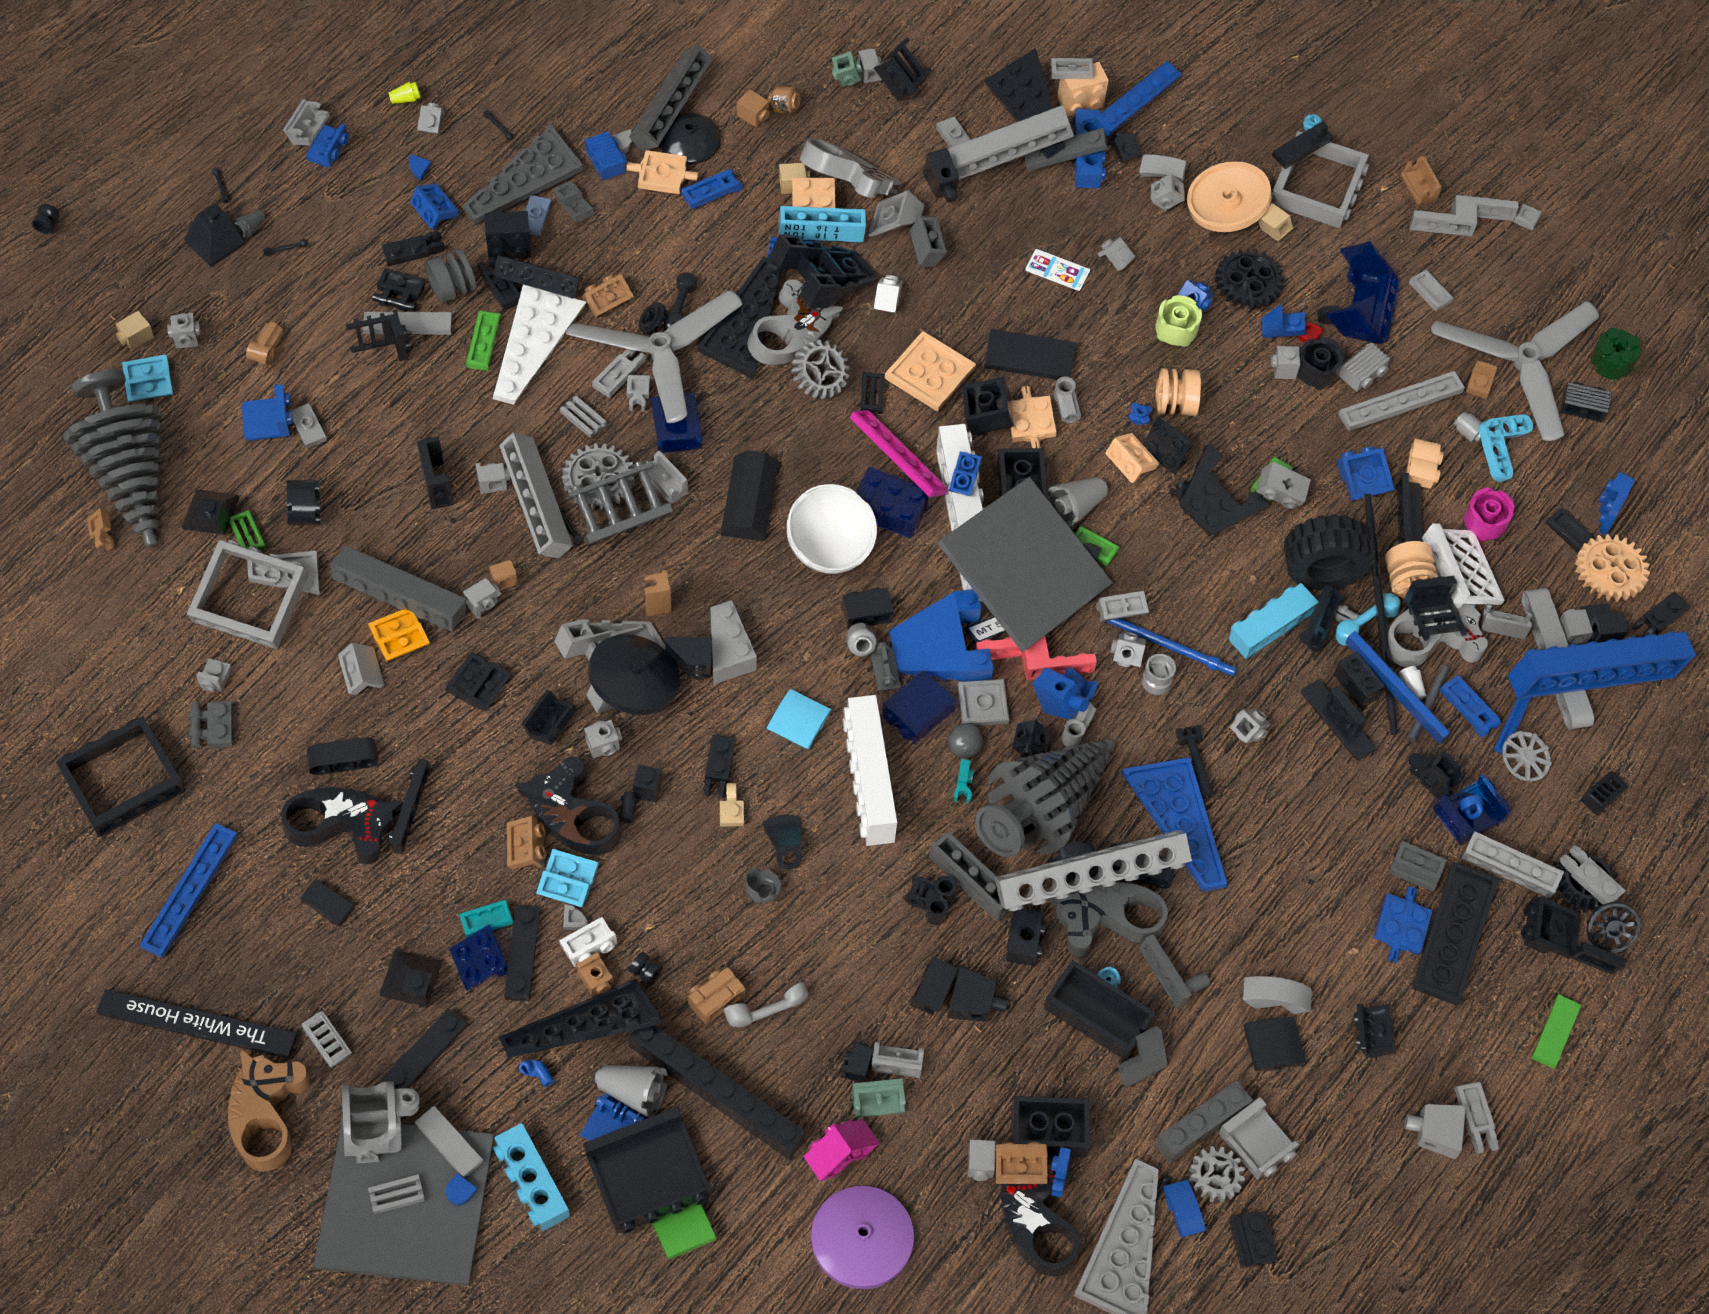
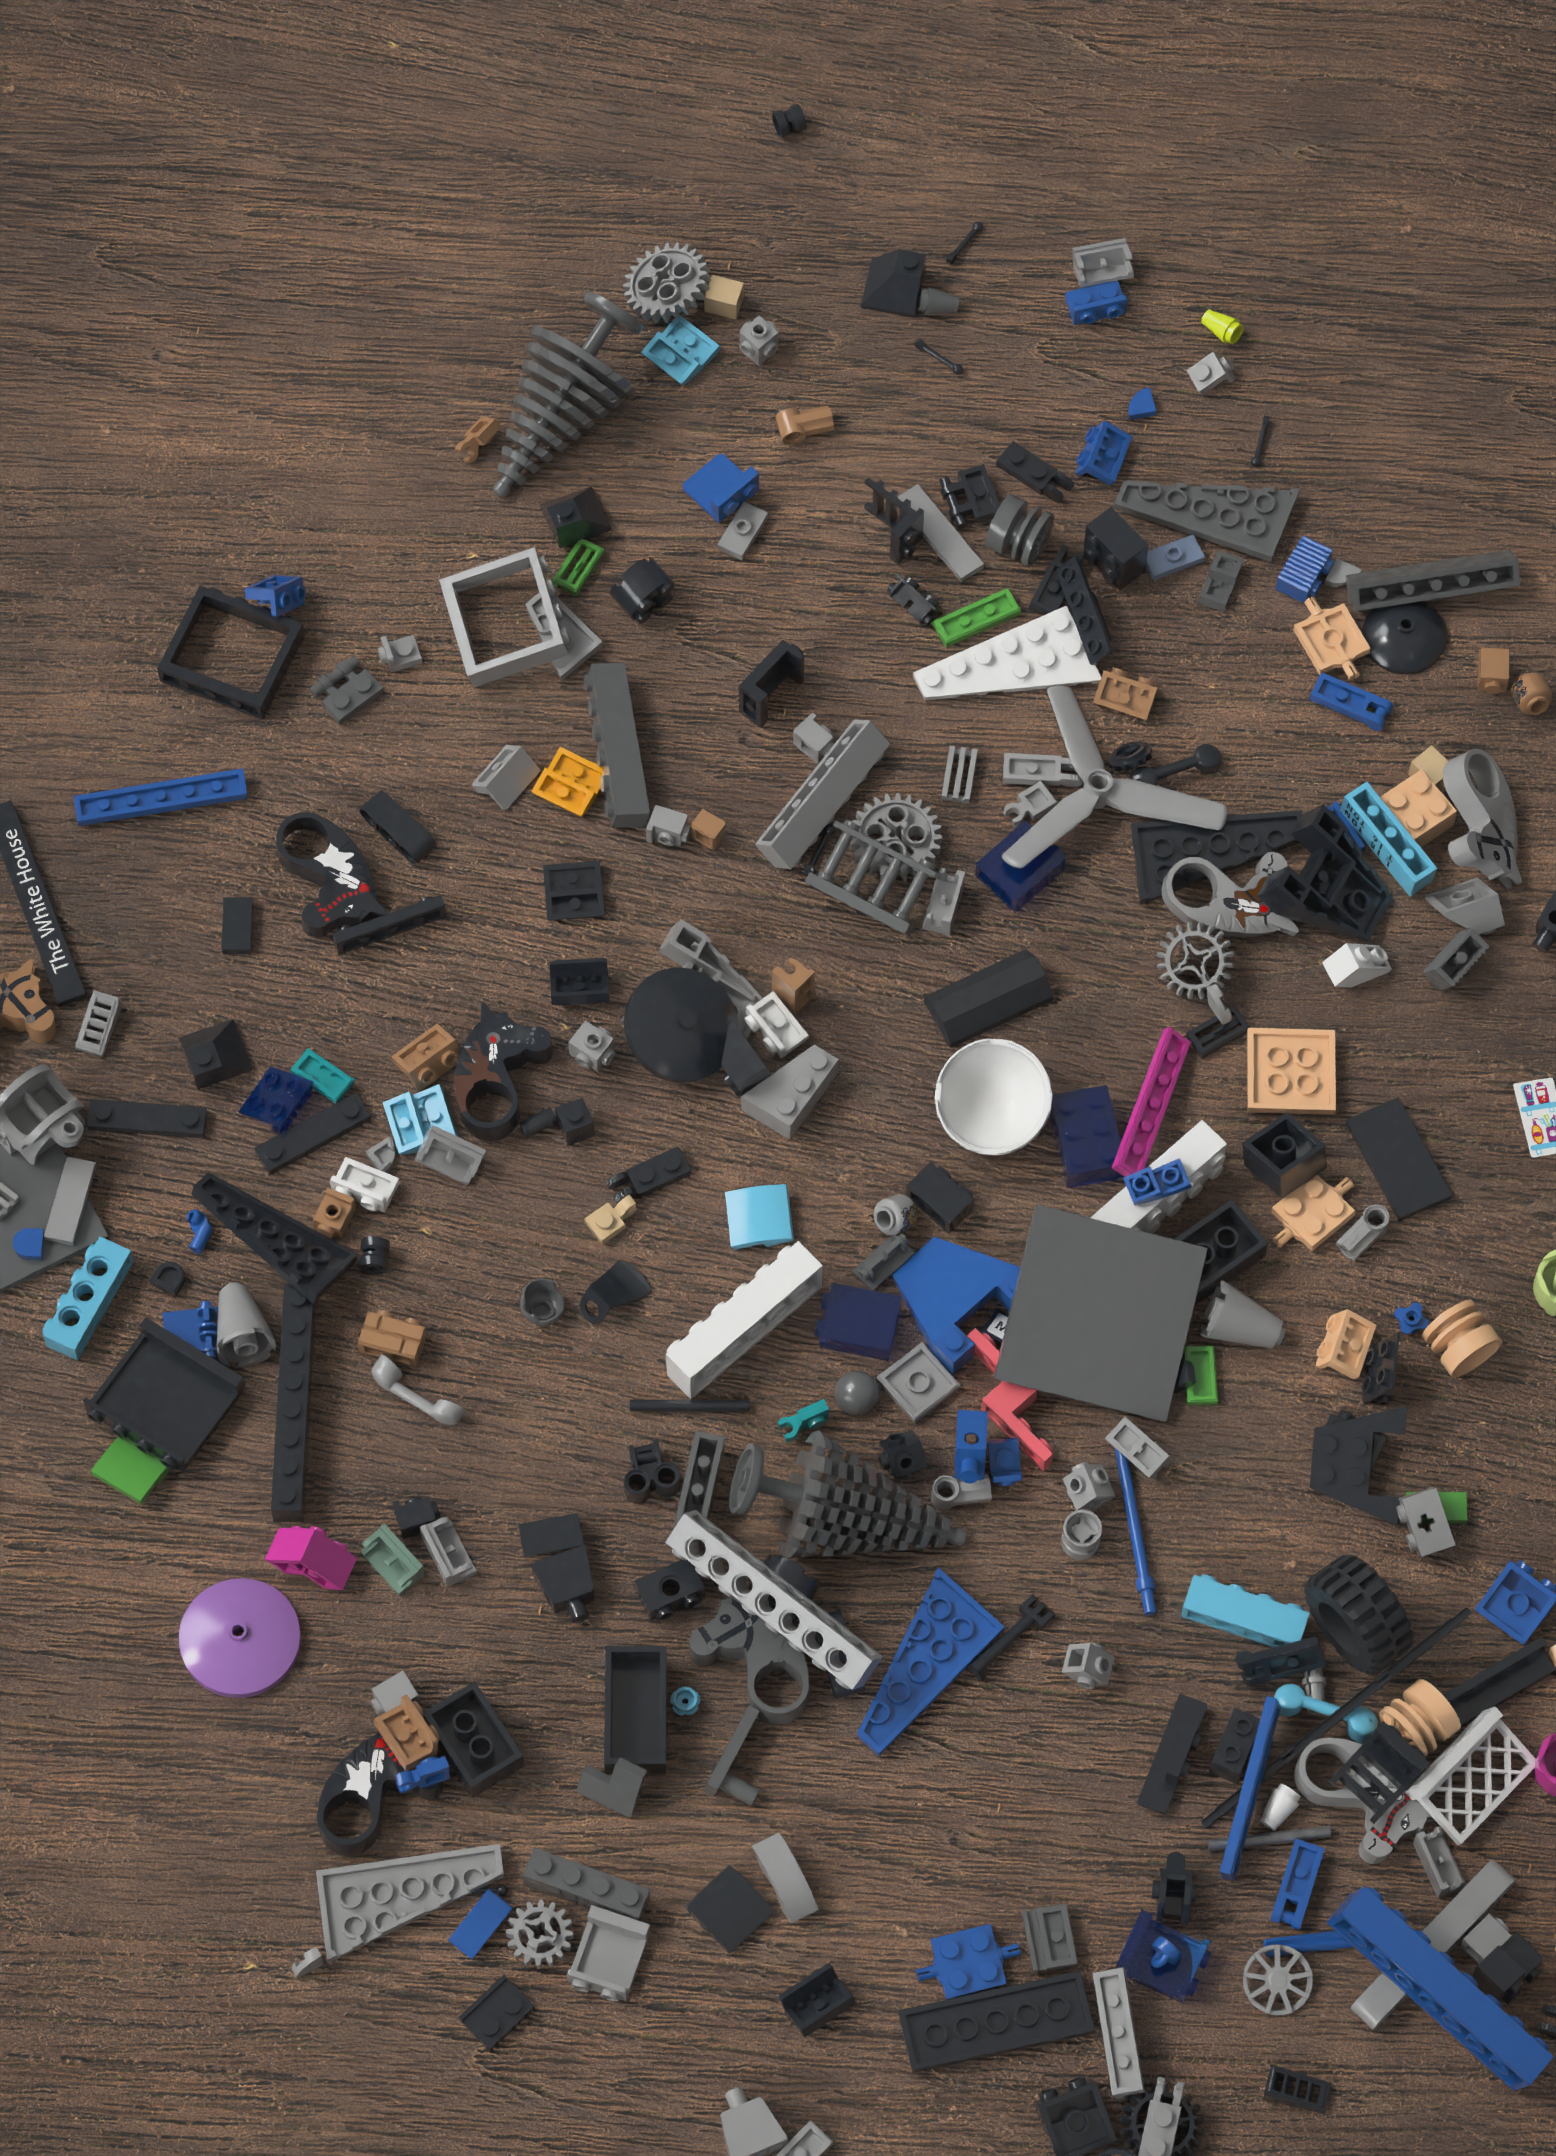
camera: 60 degrees right, 5 degrees up
(81, 354) = (667, 282): none -> light grey gear
(100, 717) = (281, 592): none -> blue bracket
(434, 363) = (922, 607): none -> black hinge
(556, 1114) = (168, 1278): none -> black tile
(611, 873) = (449, 1155): none -> light grey hinge
(673, 623) = (776, 1025): none -> white bracket
(857, 378) = (1214, 1001): none -> light grey tile
(899, 845) = (690, 1405): none -> black bar

